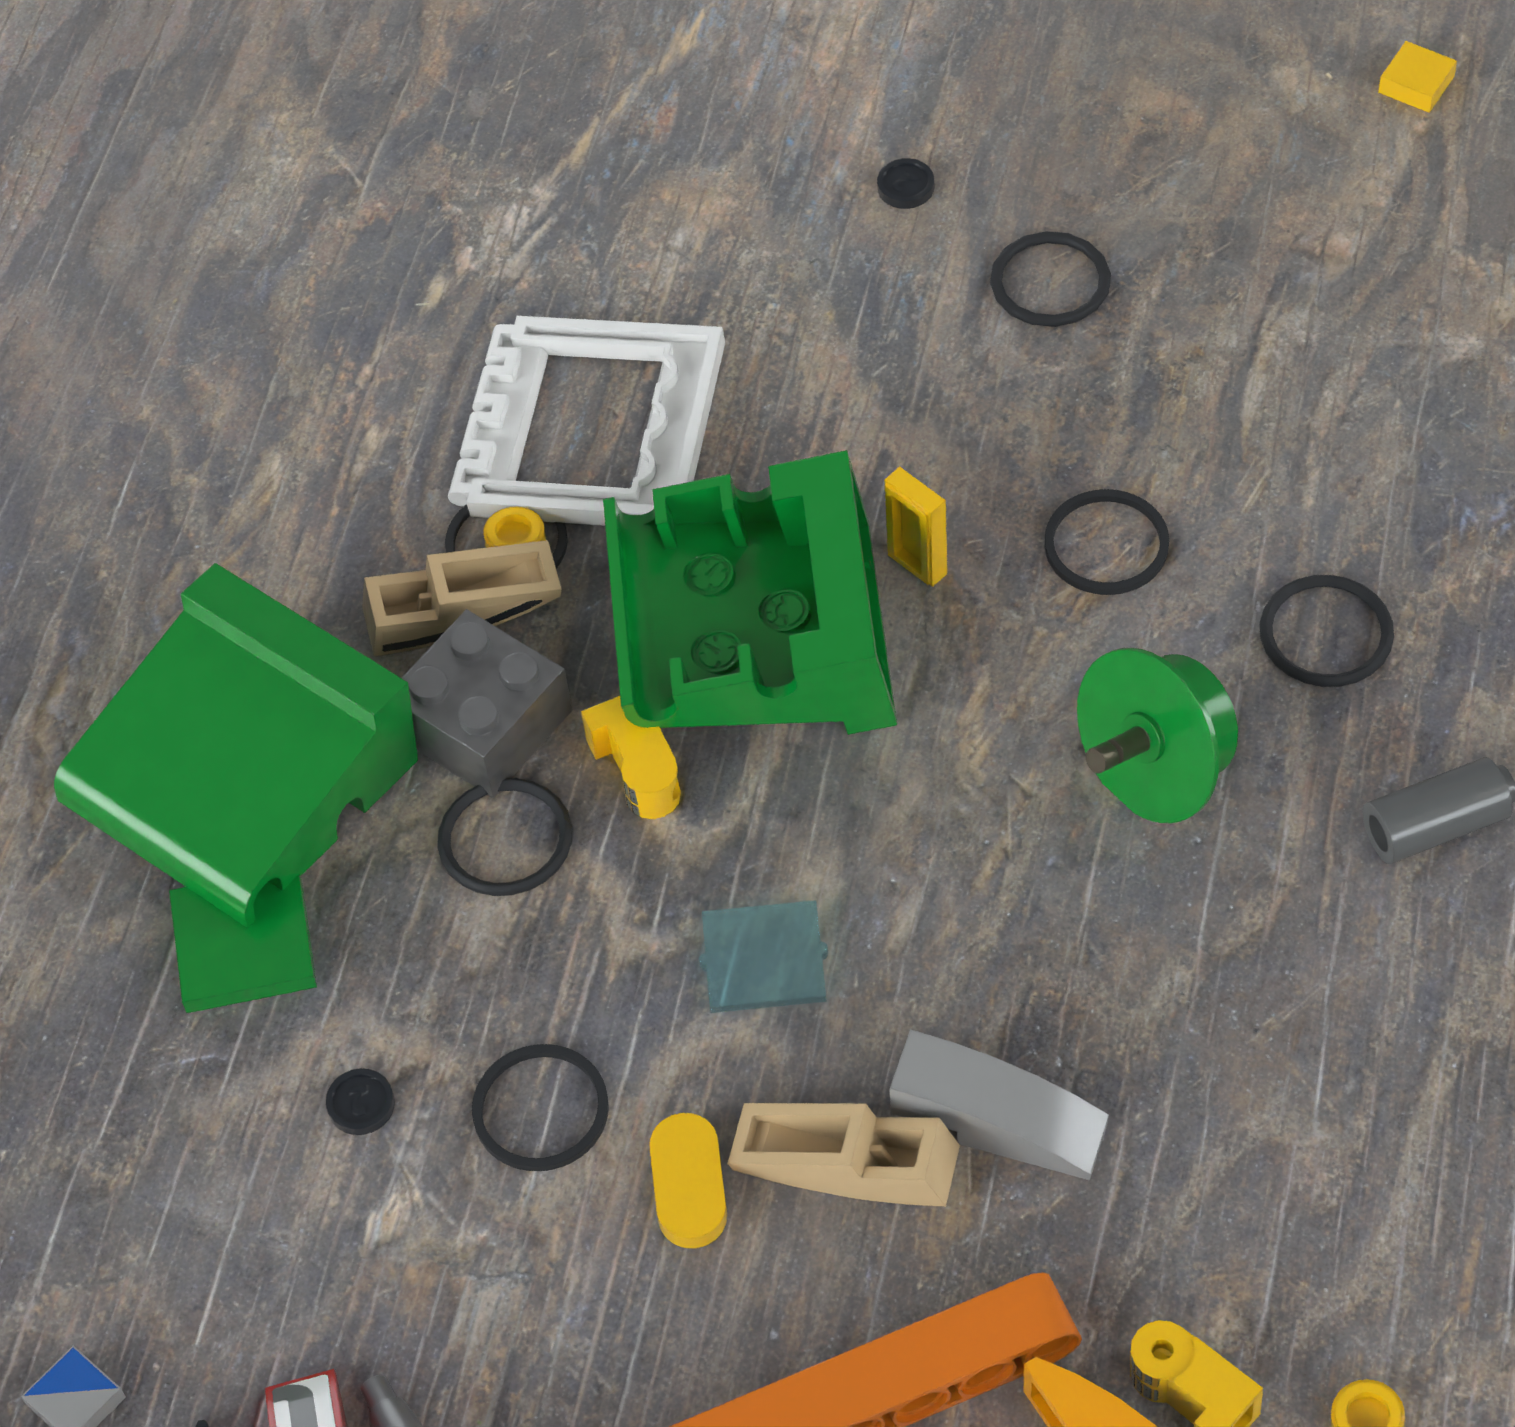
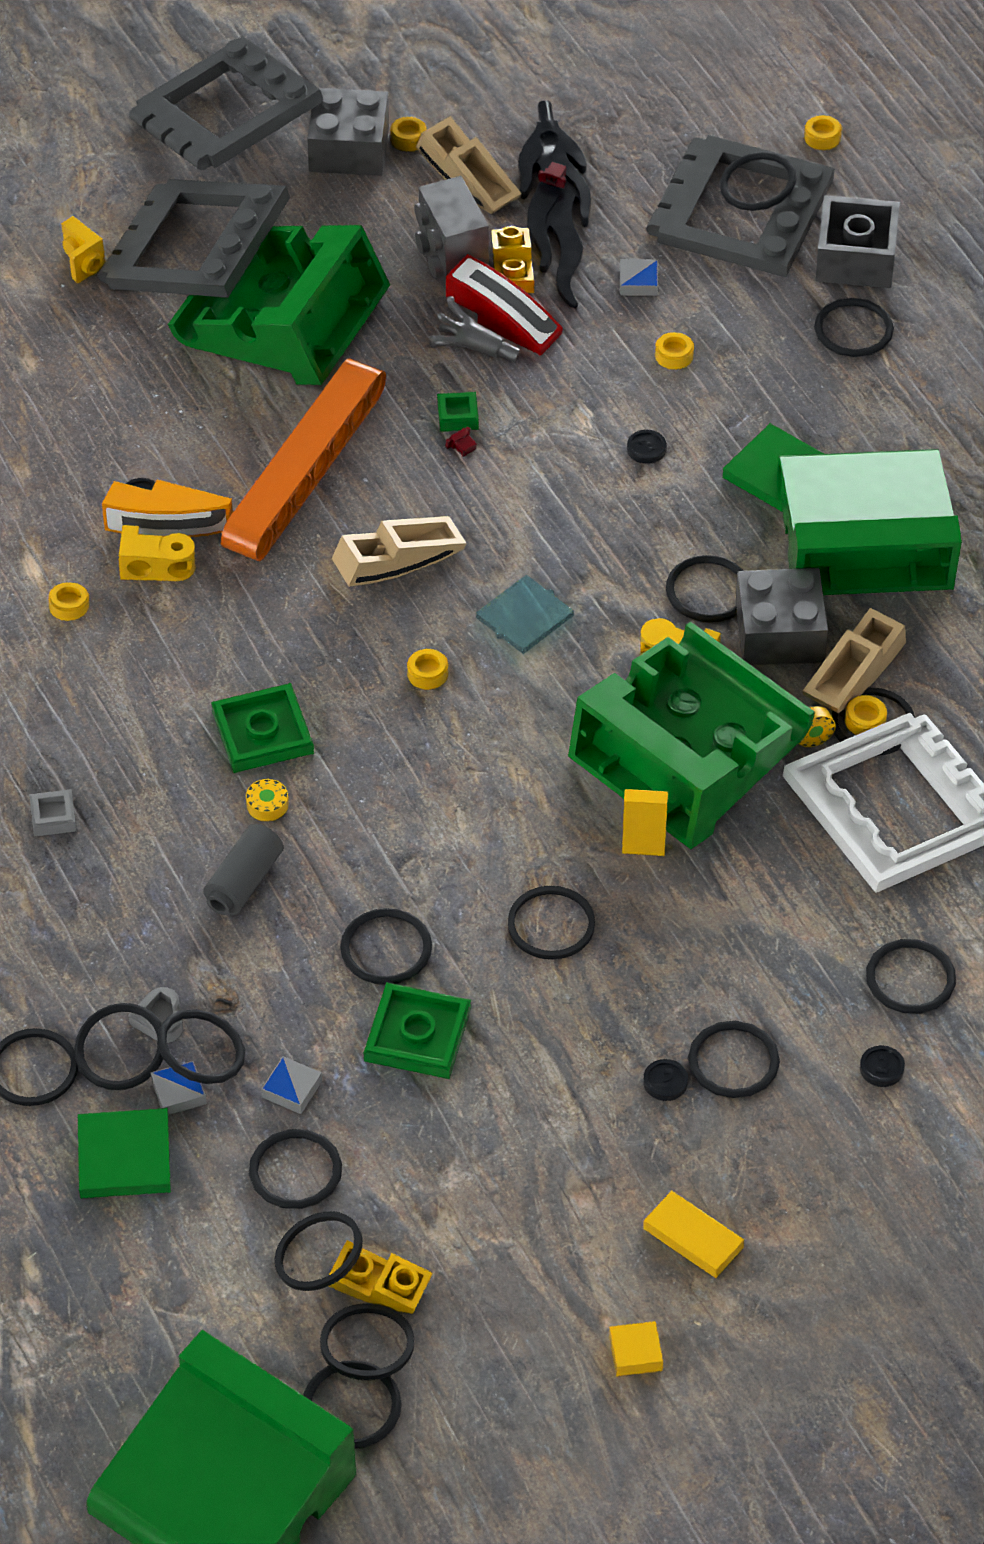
camera: 135 degrees right, 5 degrees down
(163, 1228) = (674, 350): none -> yellow tile
(547, 1346) = (457, 411): none -> green tile
(550, 1162) = (562, 521): black piece -> none
(586, 550) = (821, 728): none -> yellow tile
(590, 1289) = (462, 442): none -> dark red piece
(688, 1180) = (461, 502): yellow tile -> none
(780, 288) = (907, 1008): none -> black piece
(961, 956) = (427, 669): none -> yellow tile
(997, 1106) = (345, 604): light grey slope -> none
(1143, 300) = (665, 1080): none -> black piece
(1156, 731) = (413, 792): green piece -> none
(1248, 1016) = (262, 727): none -> green tile
(1262, 138) = (693, 1234): none -> yellow tile
(1325, 904) = (267, 800): none -> yellow tile
(1374, 508) = (417, 1030): none -> green tile

